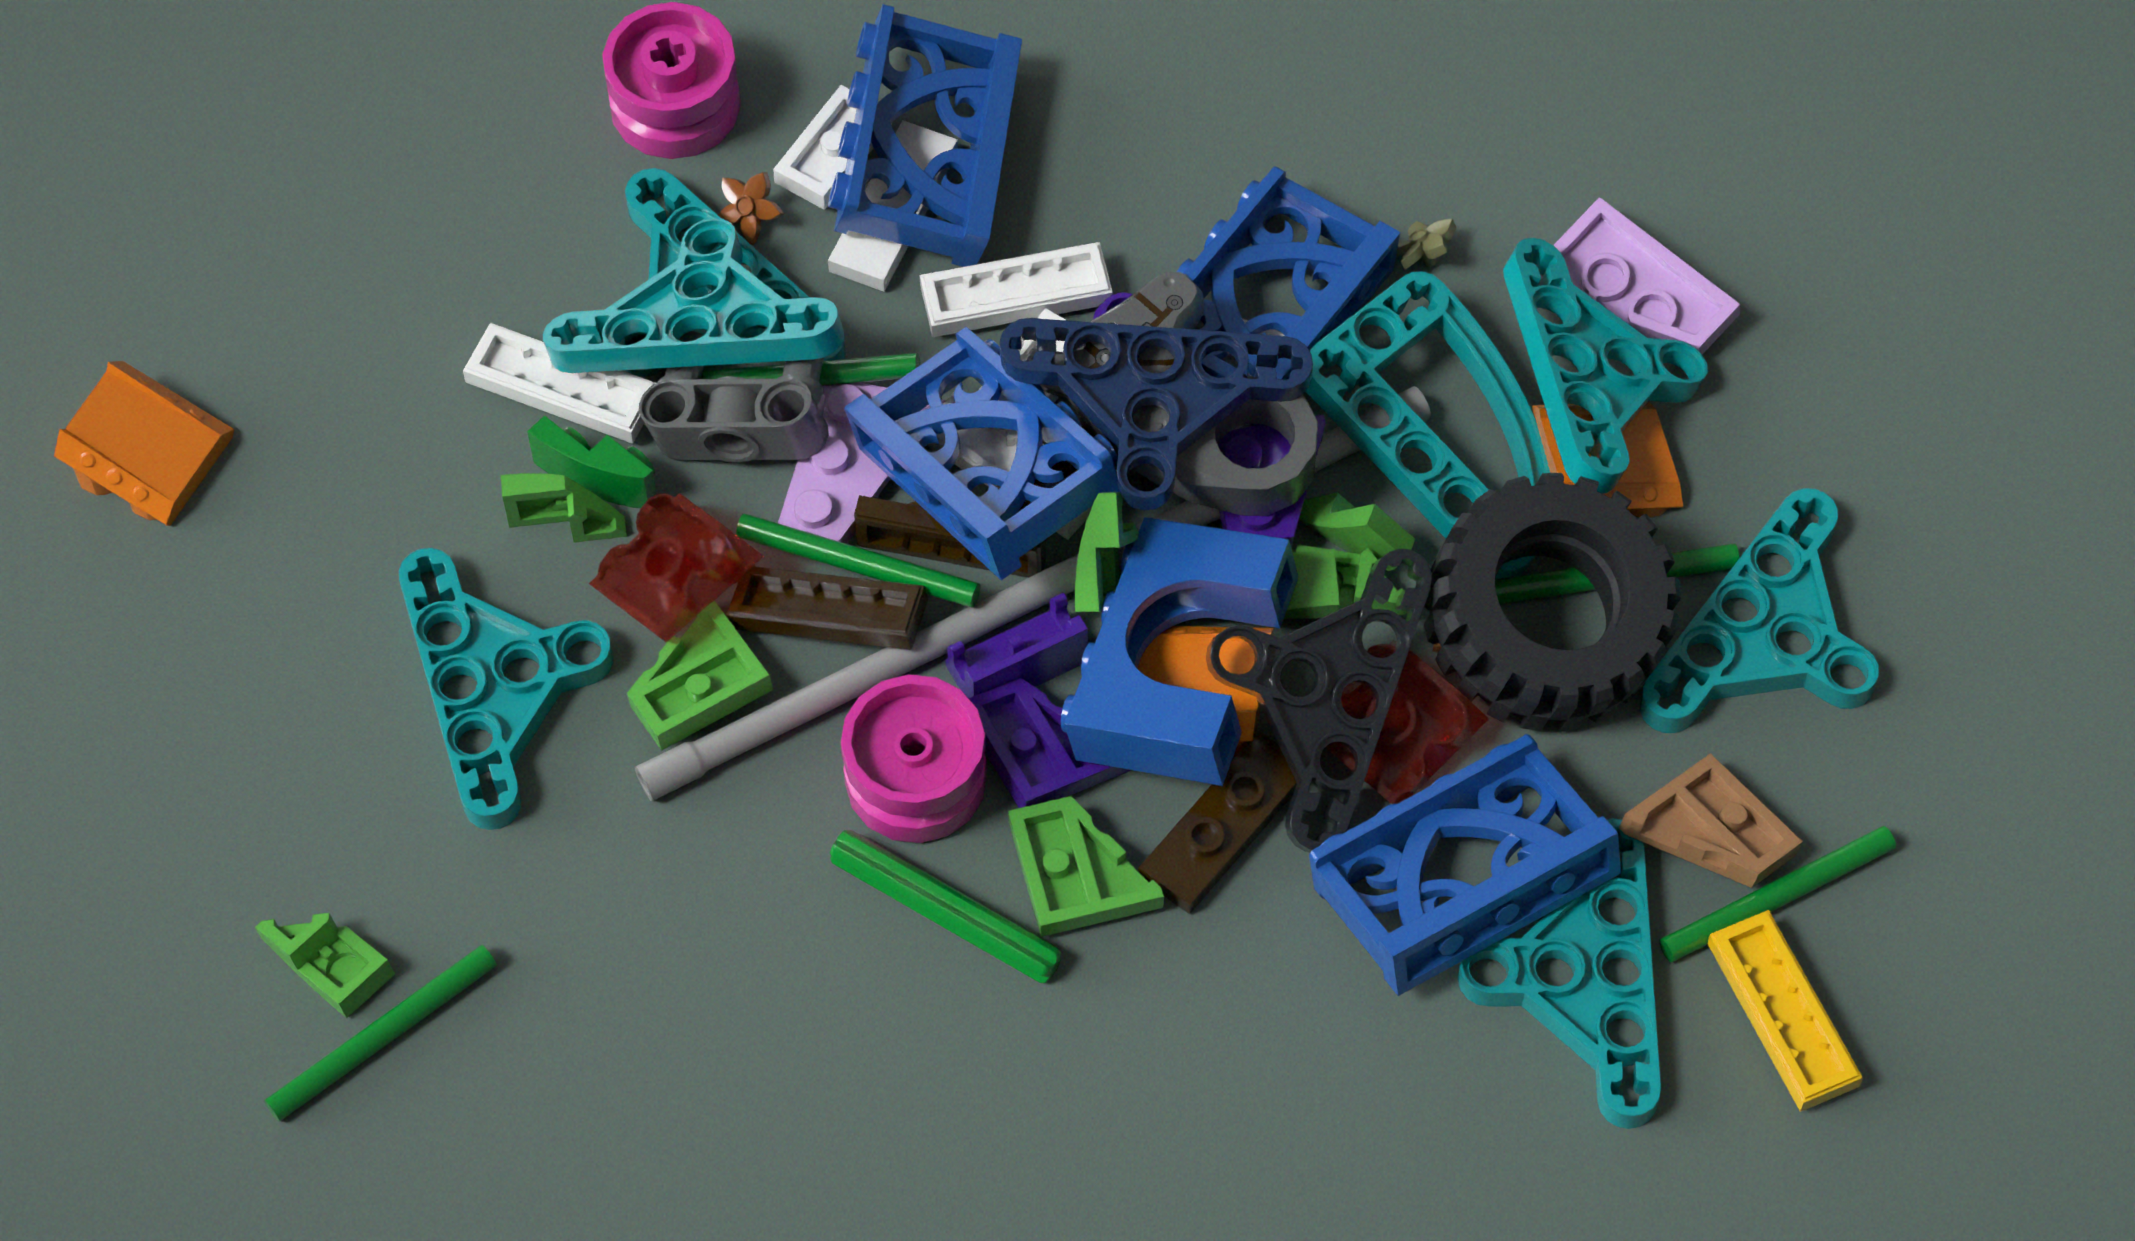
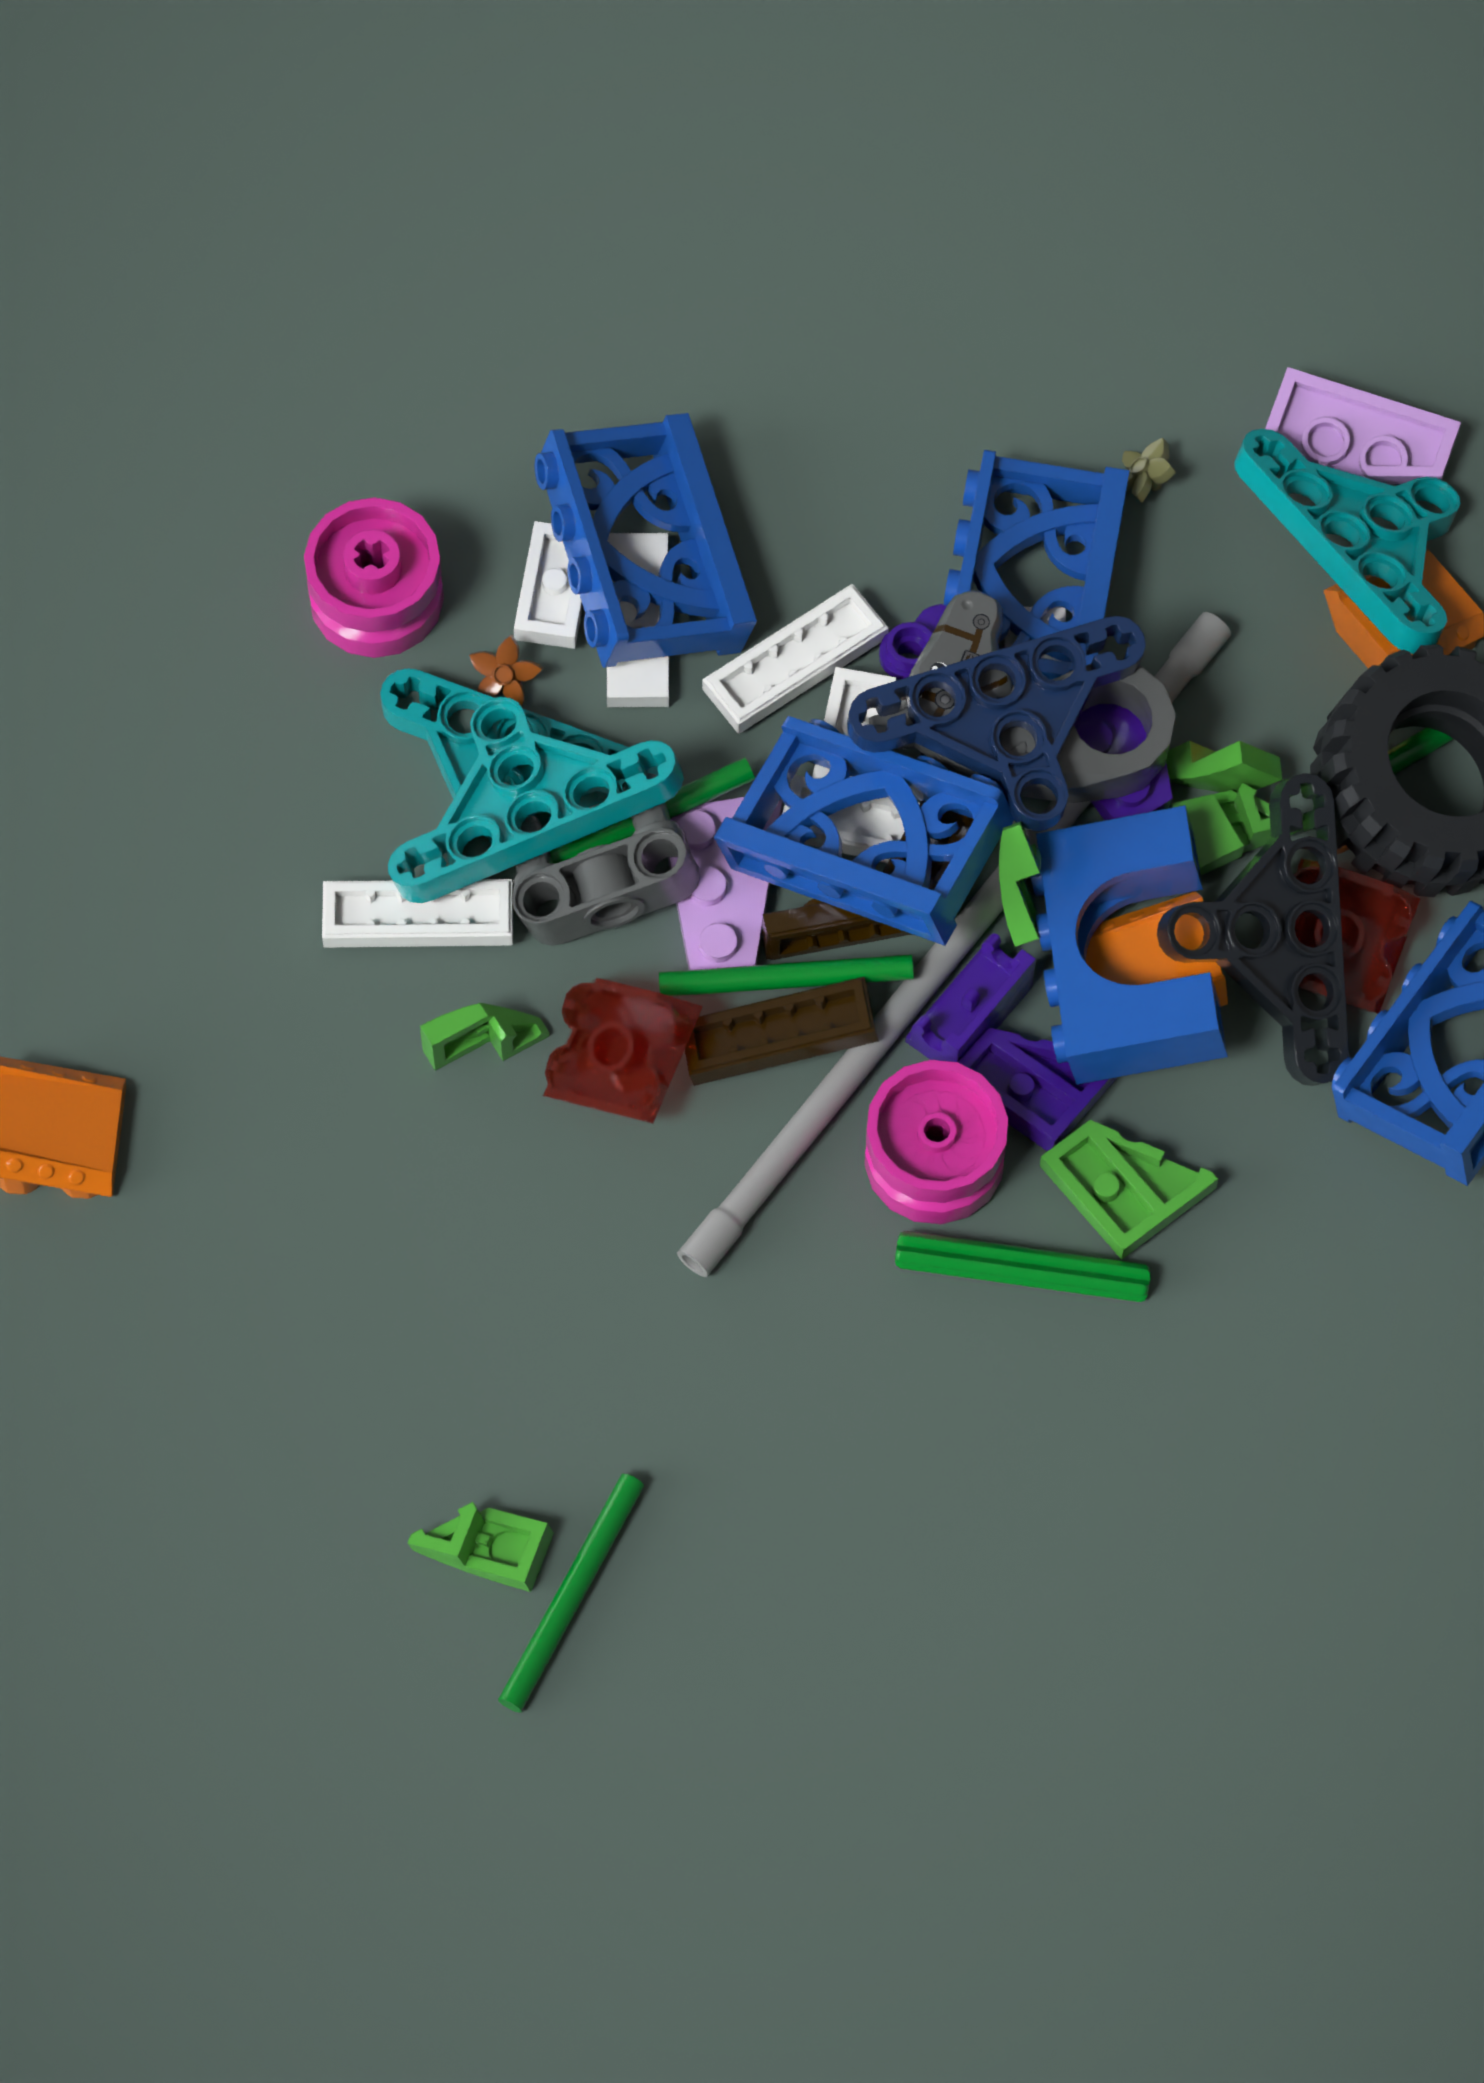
camera: 25 degrees left, 5 degrees up
(499, 706) = (477, 1199): teal beam -> none
(606, 469) = (514, 981): green slope -> none
(698, 680) = (694, 1147): bright green wing -> none
(1221, 824) = (1231, 1092): dark brown plate -> none
(1406, 428) = (1220, 655): teal beam -> none

